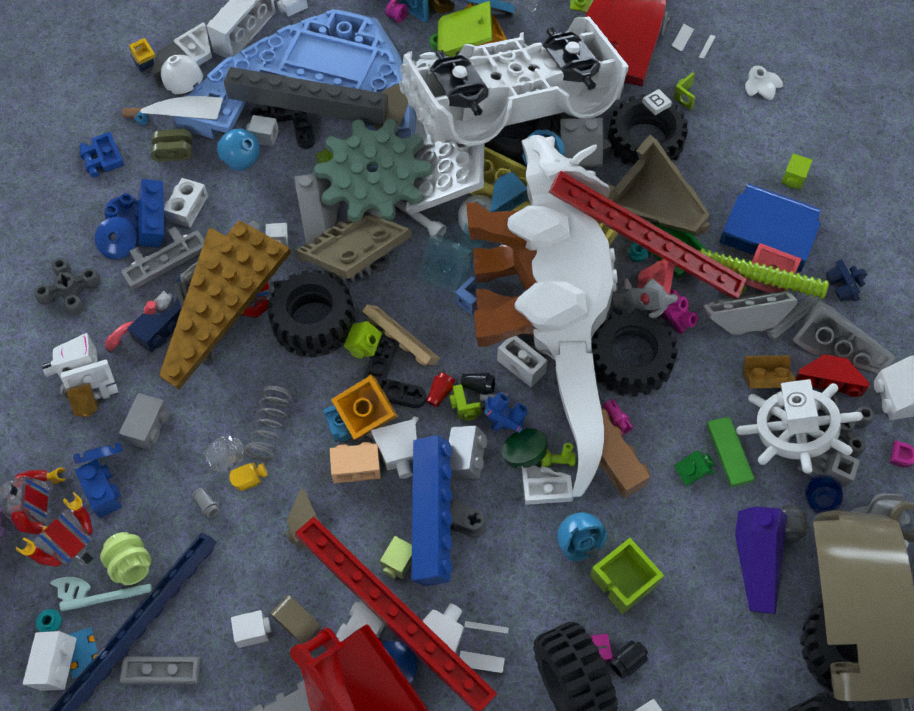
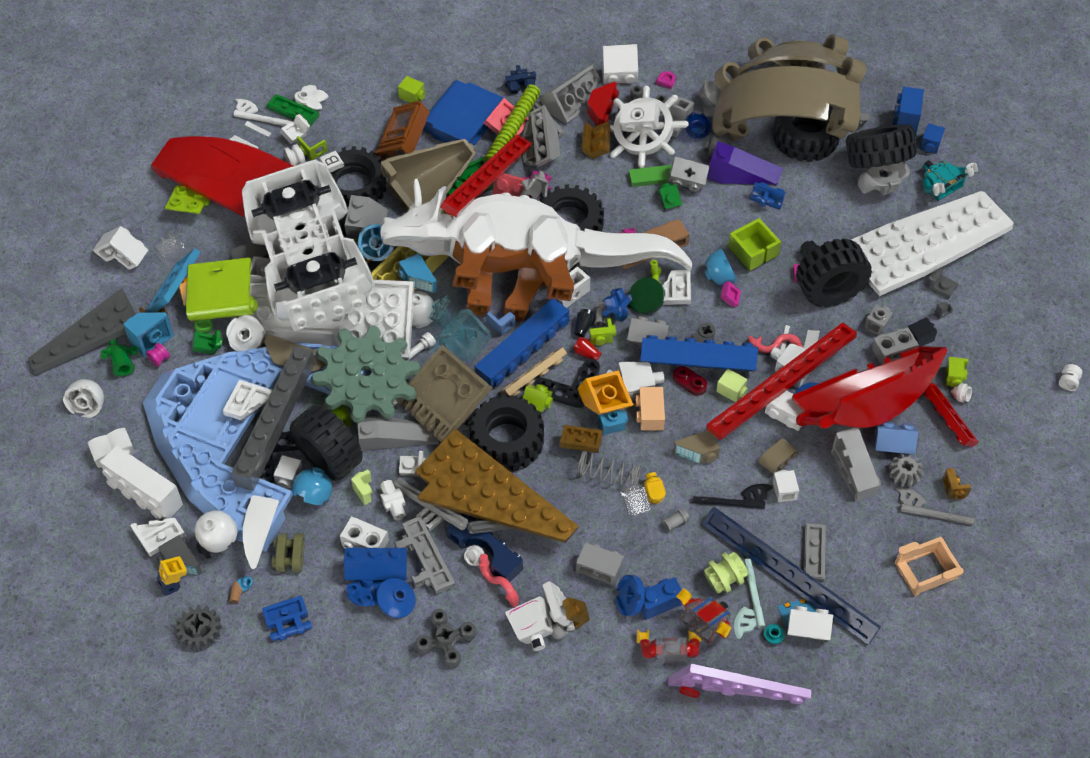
camera: 85 degrees left, 5 degrees down
(94, 89) = (206, 631): none -> dark grey gear
(230, 218) = (392, 500): none -> white axle
(231, 585) = (747, 503): none -> black piece
(244, 192) = (361, 486): none -> yellowish green bracket
(277, 142) = (326, 441): none -> black tyre
(306, 389) = (581, 438): none -> pearl gold bracket
(328, 70) = (245, 400): none -> white wing
(404, 508) = (689, 379): none -> dark red plate
(414, 42) = (206, 343): none -> green bracket
(437, 318) = (522, 343): none -> blue brick
(482, 635) = (777, 342): none -> coral animal
(543, 551) = (730, 294): none -> dark pink plate
(666, 76) = (294, 156): none -> white wheel
(707, 73) = (298, 127): none -> white bracket
(718, 594) = (768, 196): none -> blue hips
(723, 32) = (240, 112): none -> white piece
(725, 167) = (403, 130): none -> dark orange door
(737, 472) = (696, 171): none -> light grey brick
(739, 70) = (291, 109): none -> green tile

